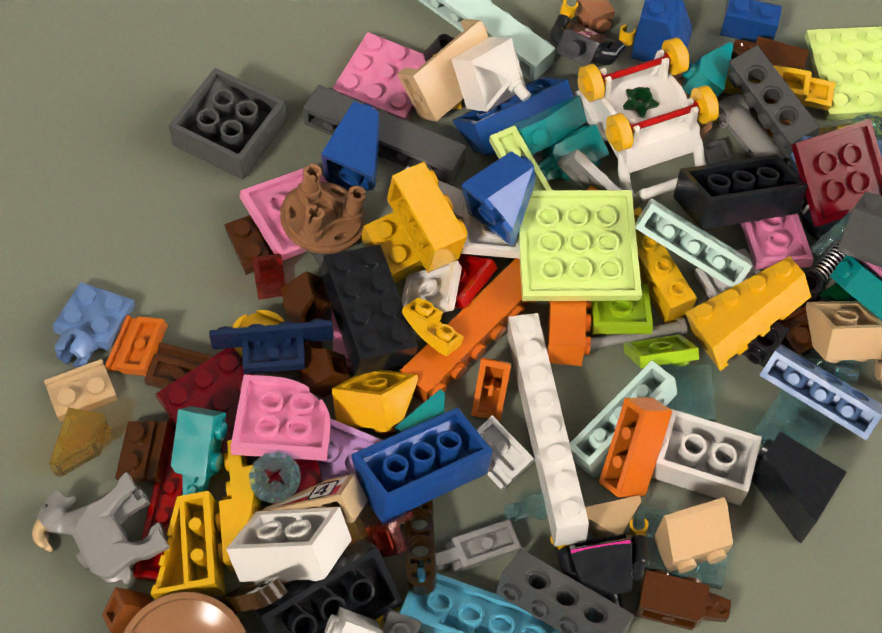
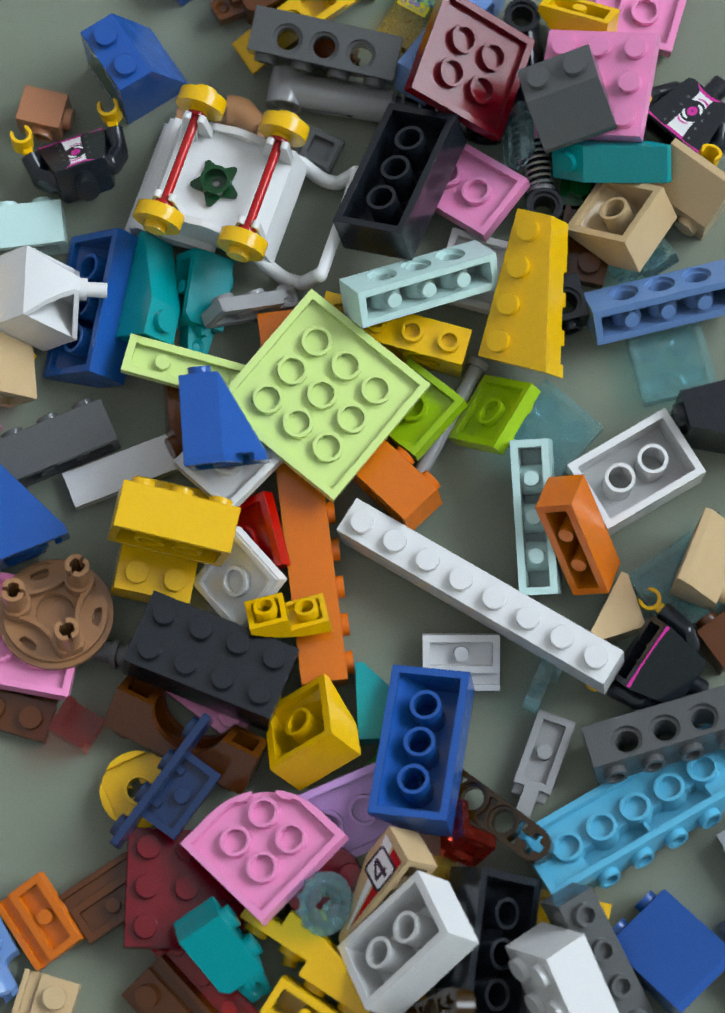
camera: 45 degrees left, 15 degrees up
(491, 389) = (392, 612): orange slope -> none
(709, 70) = (234, 72): teal slope -> none

